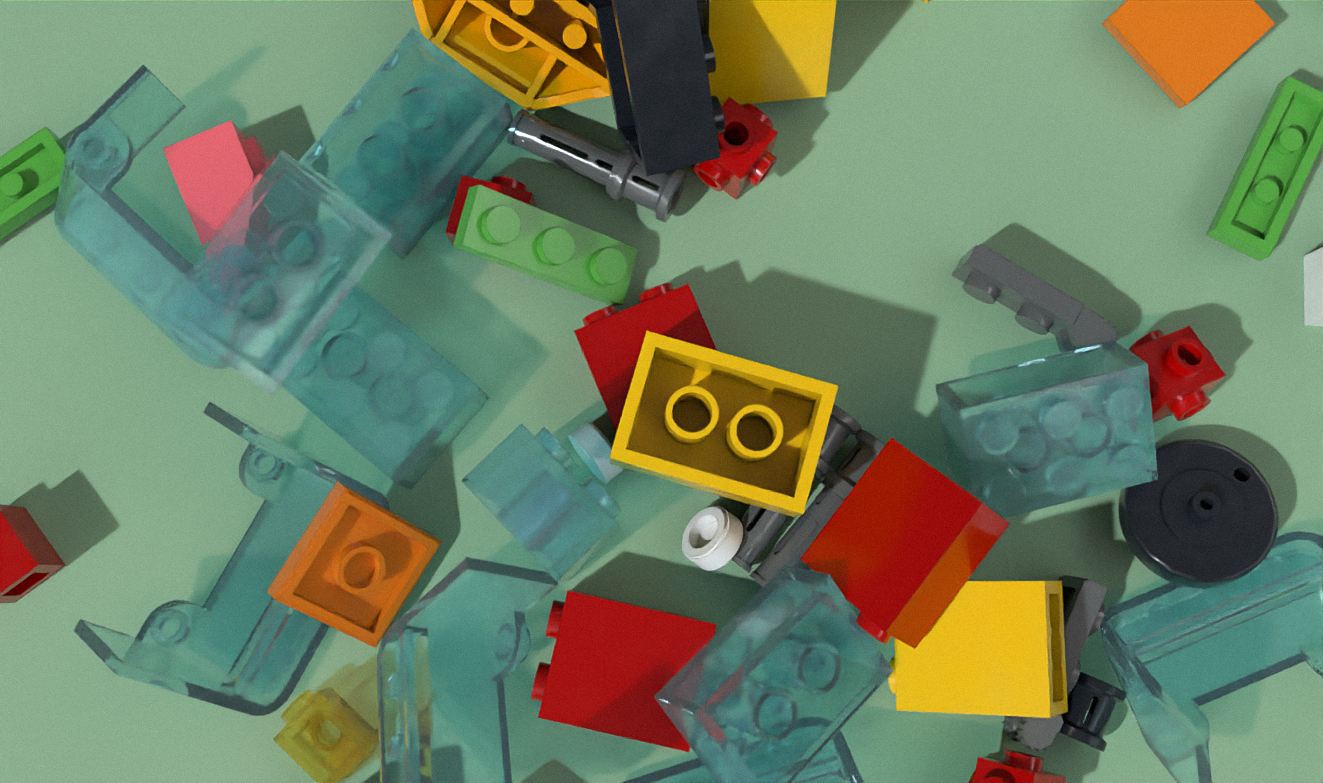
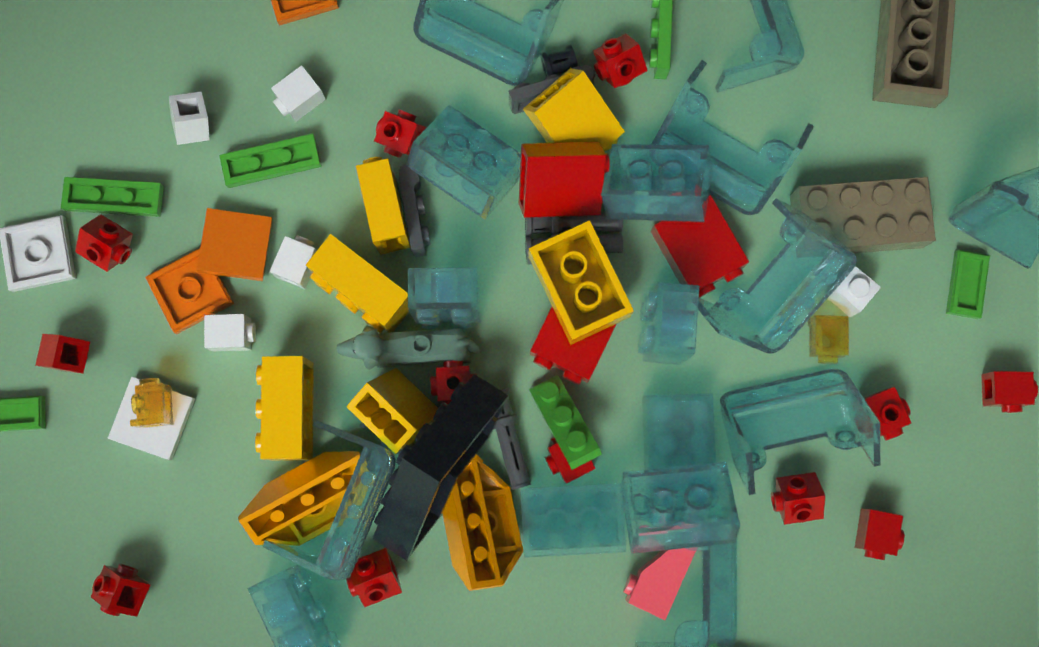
camera: 130 degrees left, 0 degrees up
(146, 721) = (890, 411): none -> red brick
(150, 481) = (799, 498): none -> red brick
(354, 565) = (756, 385): orange tile -> none
(594, 451) = (627, 333): white tile -> none
(712, 538) = (622, 256): white tile -> none
(839, 124) = (408, 347): none -> sand green animal
(870, 216) = (444, 296): none -> clear light blue brick
(988, 127) = (358, 285): none -> yellow brick
(1085, 252) = (383, 205): none -> yellow brick
(1094, 81) = (292, 260): none -> white brick
(1202, 518) = (444, 77): black wheel -> none

